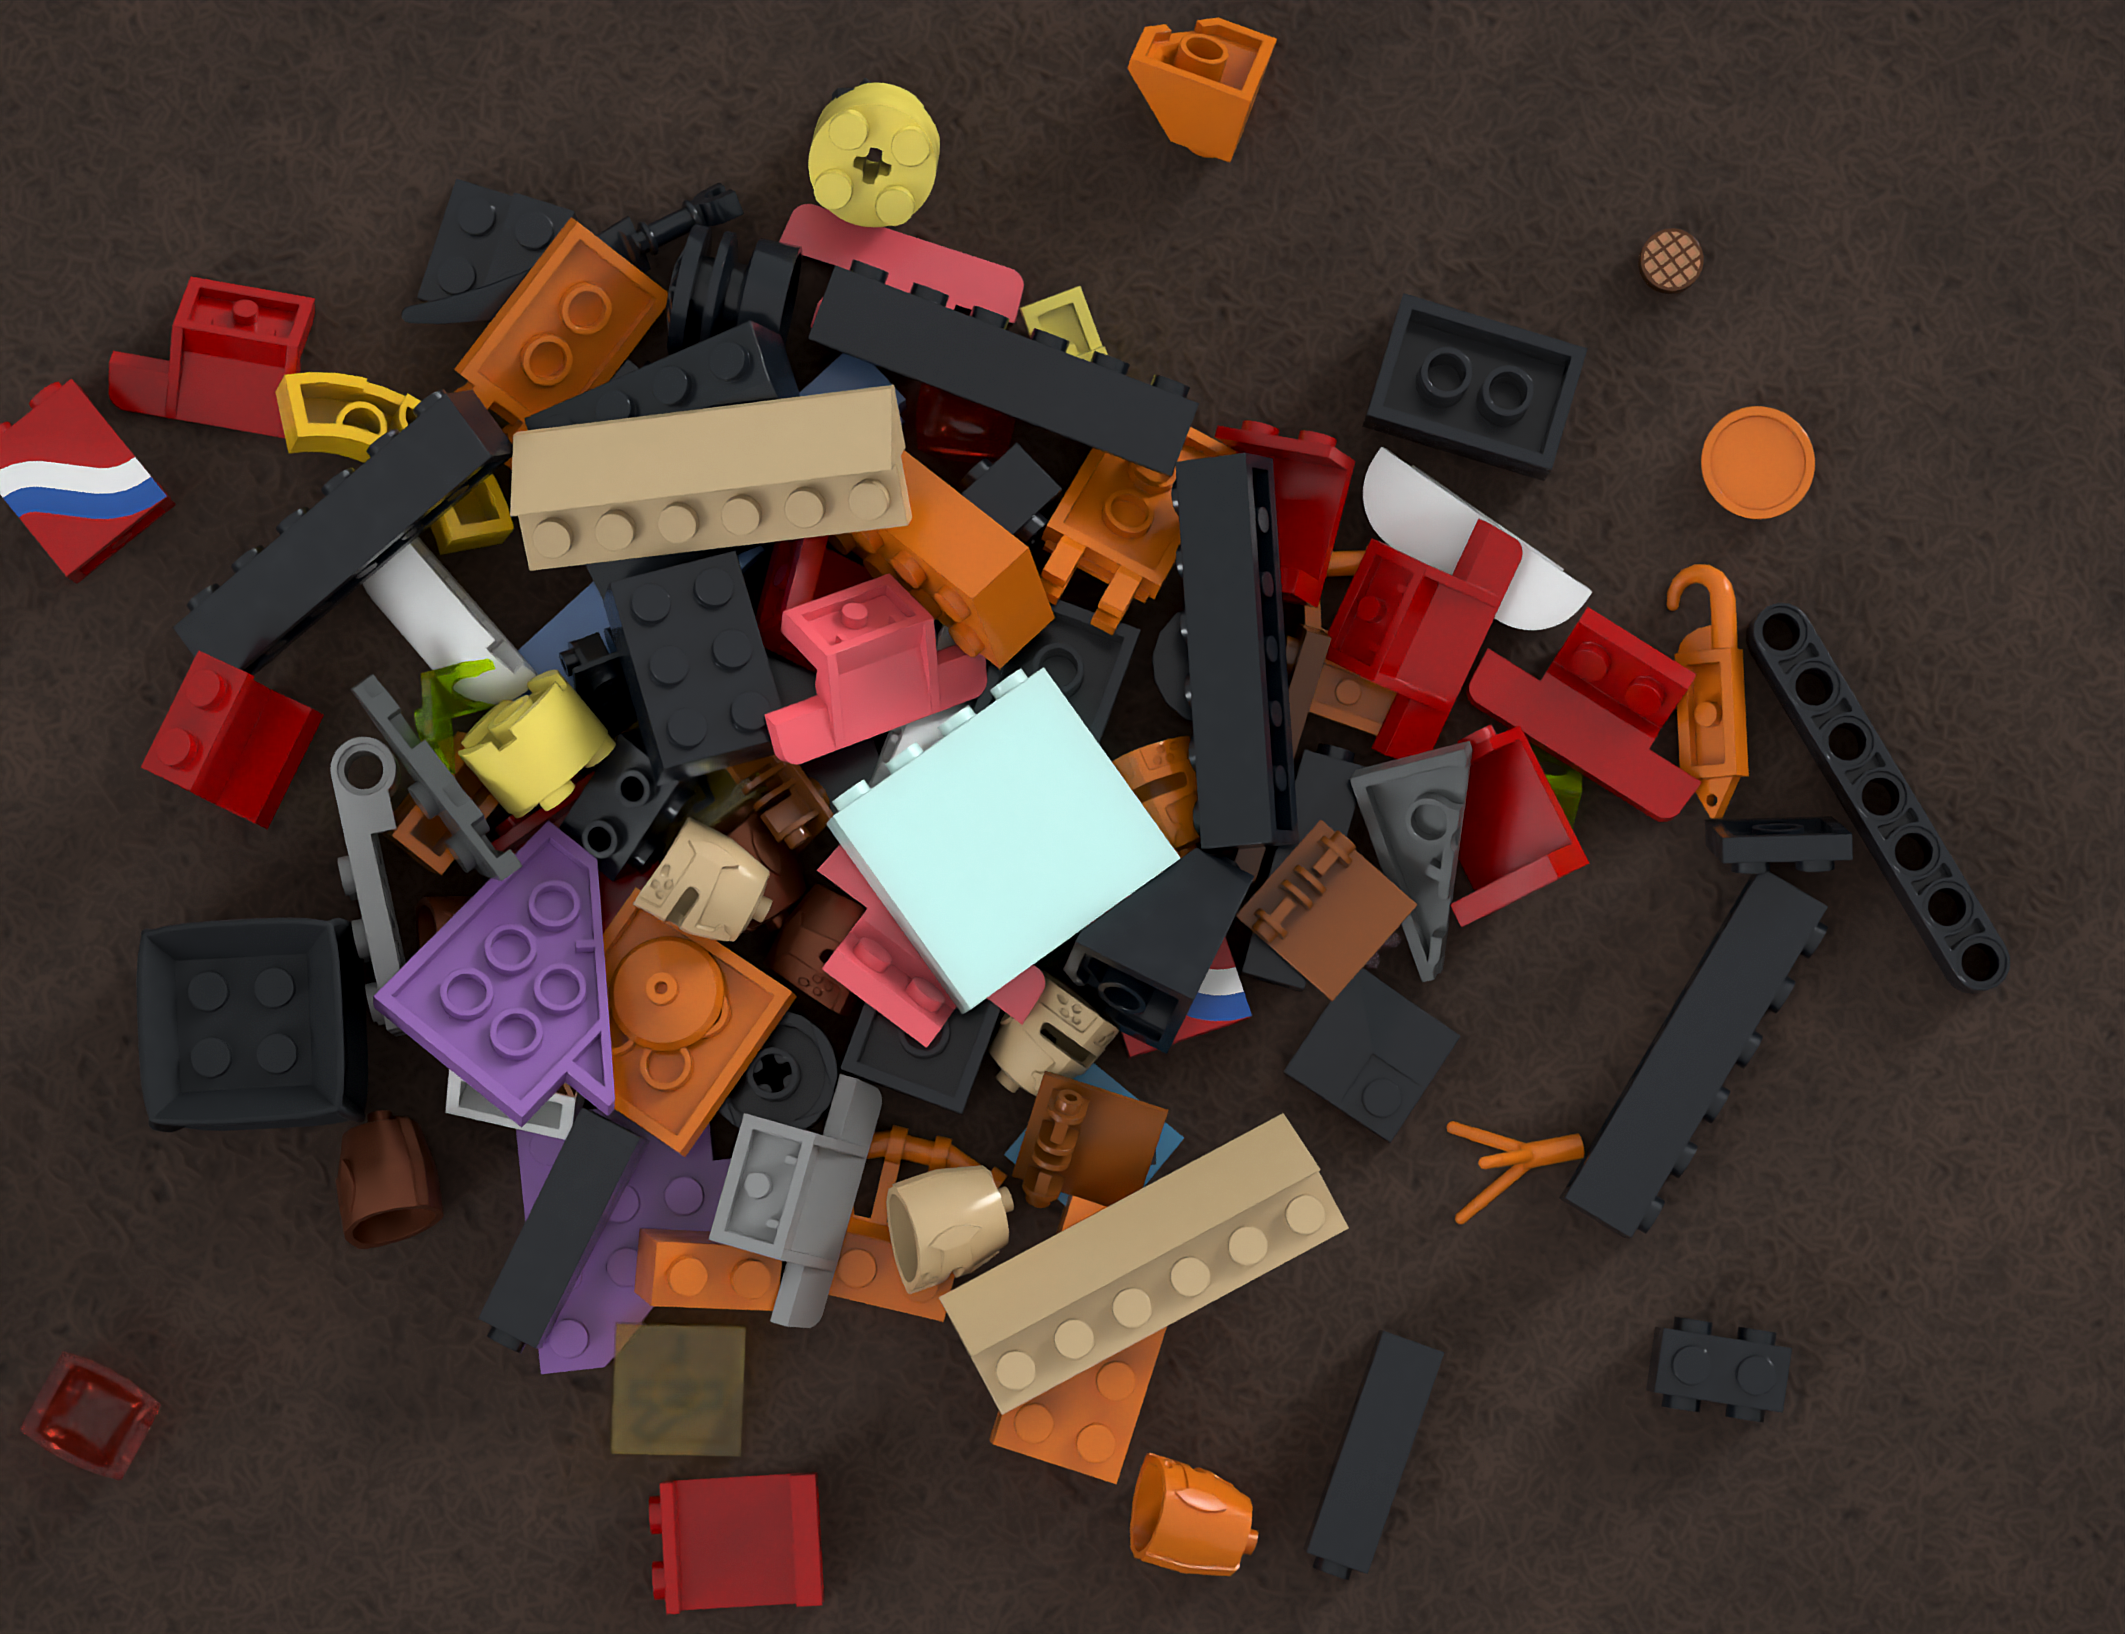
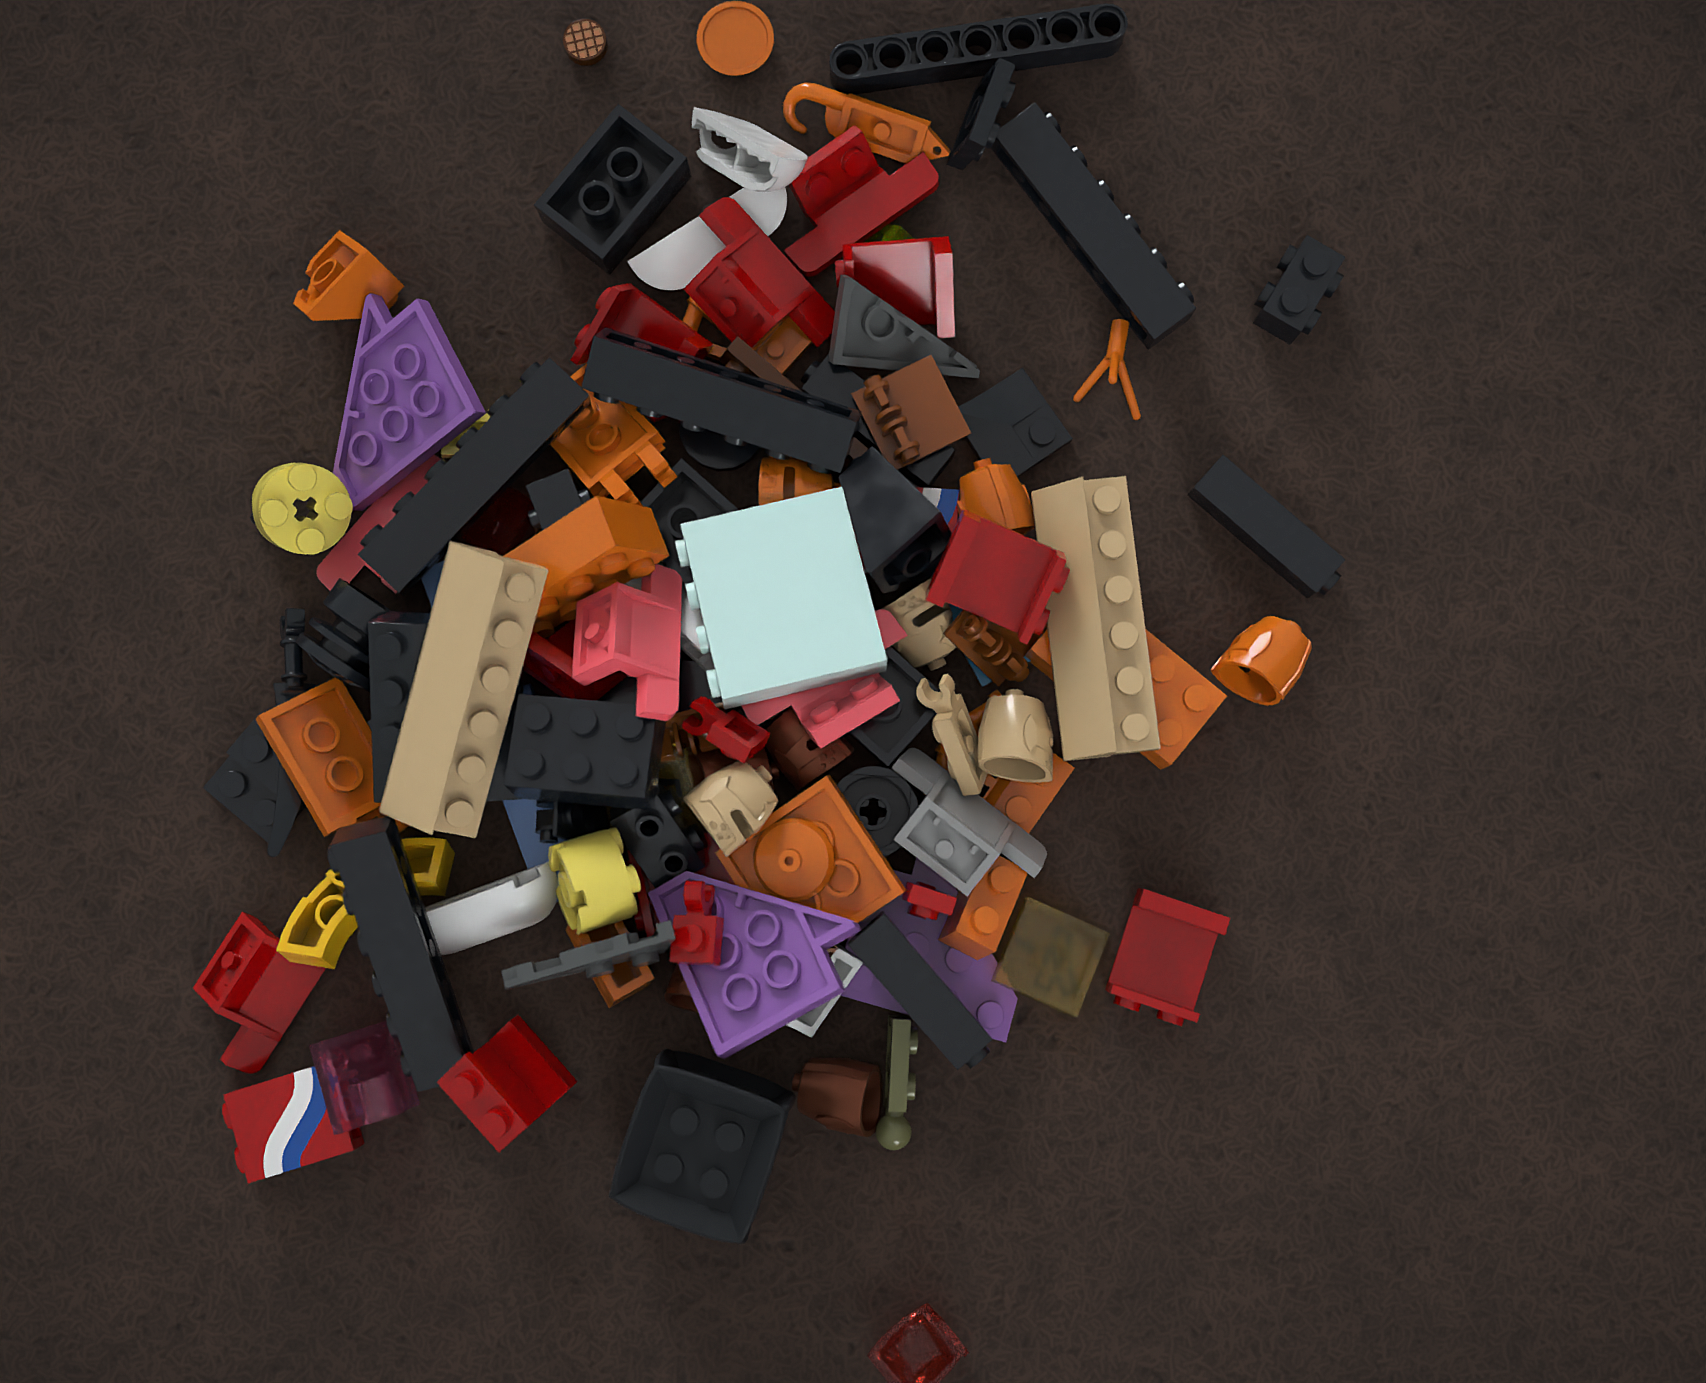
camera: 60 degrees left, 0 degrees up
(165, 549) = (362, 1077): none -> clear pink plate
(363, 871) = (630, 1029): light grey hinge -> none
(368, 1269) = (893, 1129): none -> olive plate
(444, 703) = (542, 931): clear neon green bracket -> none
(521, 907) = (697, 933): none -> red plate
(683, 1190) = (927, 901): none -> red plate
(797, 843) = (730, 732): none -> red plate
(919, 1140) = (956, 732): none -> tan plate
(1071, 225) = (401, 399): none -> medium lavender wing
(1147, 1110) = (998, 575): none -> red panel
(1249, 1069) = (996, 495): none -> orange helmet
(1594, 551) = (758, 159): none -> white brick

